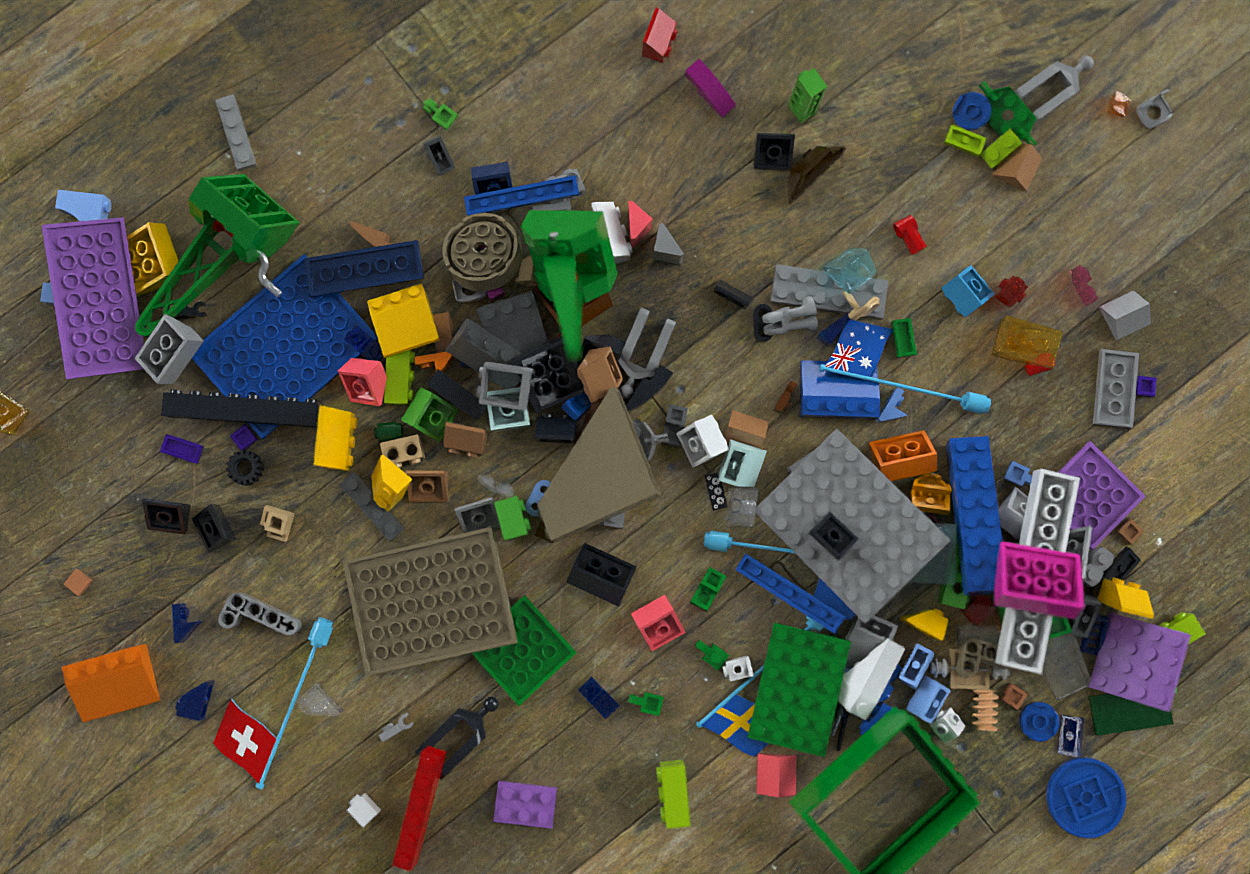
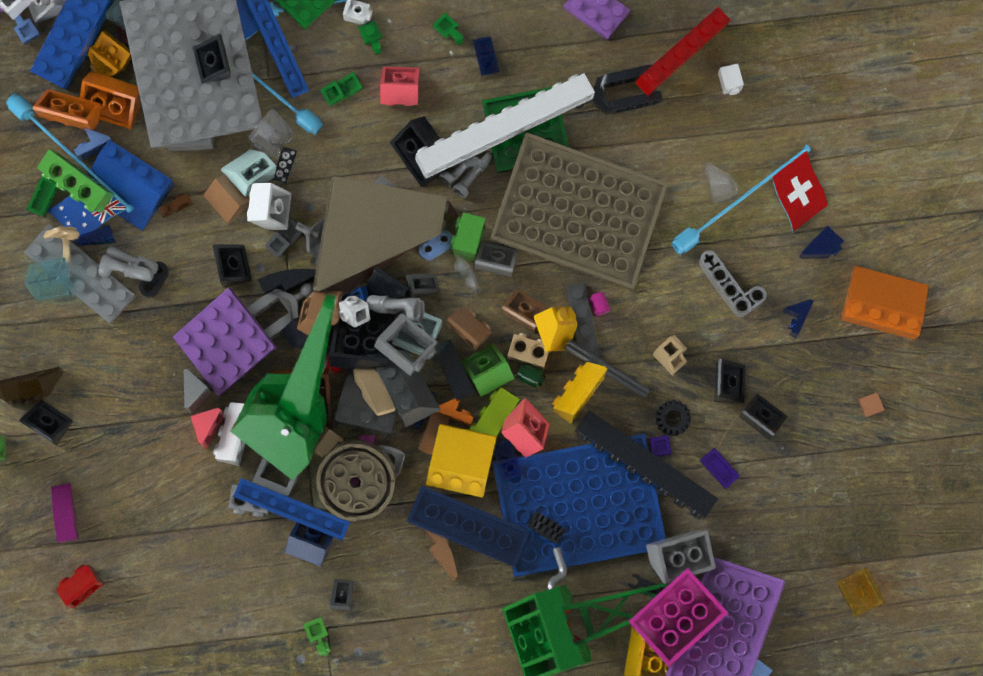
camera: 145 degrees left, 5 degrees down
(136, 291) = (678, 617): none -> dark pink slope
(295, 304) = (546, 527): none -> black tyre
(326, 475) = (612, 372): none -> dark grey axle
(365, 530) = (599, 304): none -> dark pink brick
(390, 730) = (673, 128): light grey plate -> none
(510, 332) = (373, 390): none -> tan slope
(529, 455) = (422, 284): none -> dark grey slope
(537, 637) = (505, 125): none -> white brick
(546, 411) = (383, 304): none -> light grey piece
(556, 589) = (475, 164): none -> light grey piece
(568, 388) = (354, 311): none -> white brick
(667, 304) = (224, 342): none -> medium lavender plate
(704, 375) = (232, 264): none -> black slope
(732, 294) = (162, 320): black slope -> none
(855, 364) = (99, 194): none -> bright green brick
(932, 423) = (68, 110): none -> orange slope

